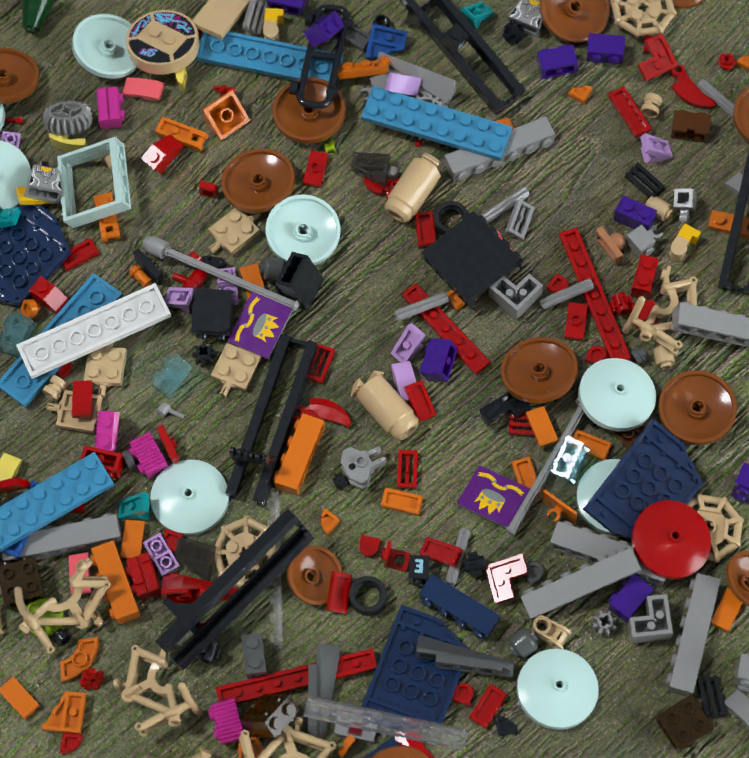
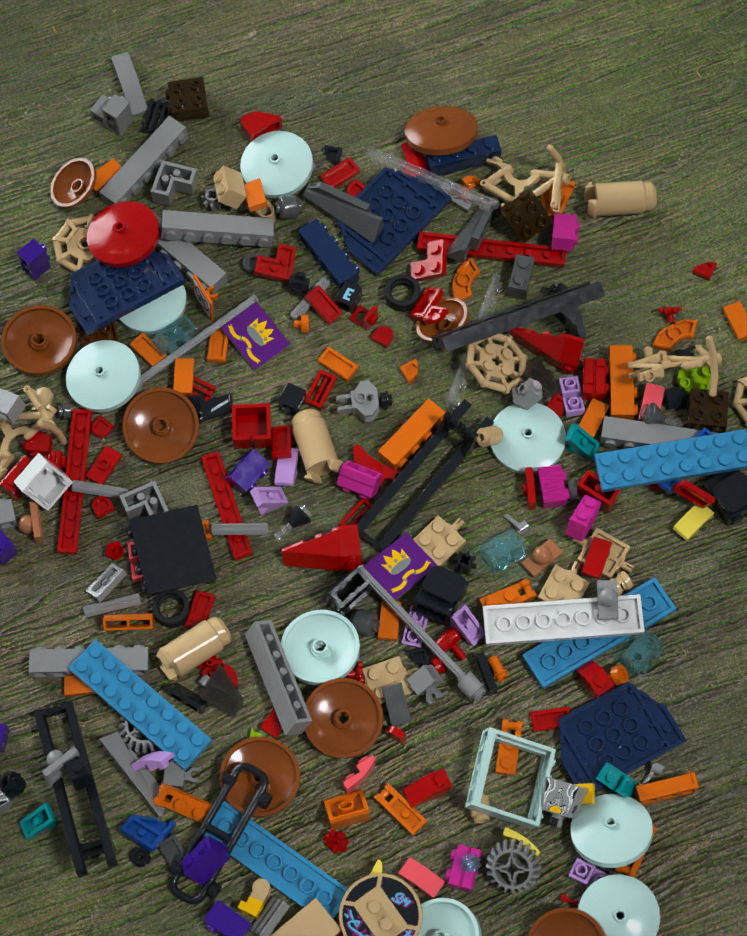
camera: 160 degrees left, 0 degrees up
(57, 356) = (607, 600): none -> light grey tile
(57, 588) = (675, 398): none -> black tile
(68, 714) = (700, 290): orange wing -> none
(71, 555) = (652, 414): none -> piece
(102, 101) = (470, 863): none -> clear light blue plate
(132, 692) = (638, 280): tan piece -> none
(135, 388) = (541, 558): none -> nougat tile
(154, 341) = (510, 595): none -> orange plate
(198, 237) = (425, 682): none -> light grey brick
(201, 527) = (527, 393): none -> light grey brick
(217, 211) = (396, 704): none -> dark grey tile
(222, 471) = (489, 436): none -> tan brick
(224, 151) = (363, 768): none -> coral slope
(261, 223) = (357, 672): none -> red plant
(313, 635) = (463, 279): none -> orange tile
(319, 317) = (332, 551): none -> red wedge
(324, 577) = (435, 314): none -> red tile
(327, 188) = (278, 677): none -> light grey brick
(331, 390) = (359, 479): none -> dark pink brick
(347, 631) = (435, 263): none -> plate
(372, 339) = (299, 517): none -> piece
(401, 153) = (187, 697): none -> black slope
(429, 445) = (291, 399): none -> black brick
(451, 525) = (303, 323): none -> orange tile
(456, 404) = (251, 426): none -> red piece
(478, 44) = (56, 764): none -> light grey tile
(483, 193) = (128, 617): none -> orange piece
(526, 248) = (118, 552): none -> red plate
(560, 634) = (255, 195): none -> orange tile
(590, 634) = (229, 187): none -> tan brick
(597, 725) = (259, 123): none -> red slope
(618, 271) = (43, 481): none -> white container
(630, 598) = (184, 202): dark purple brick -> none

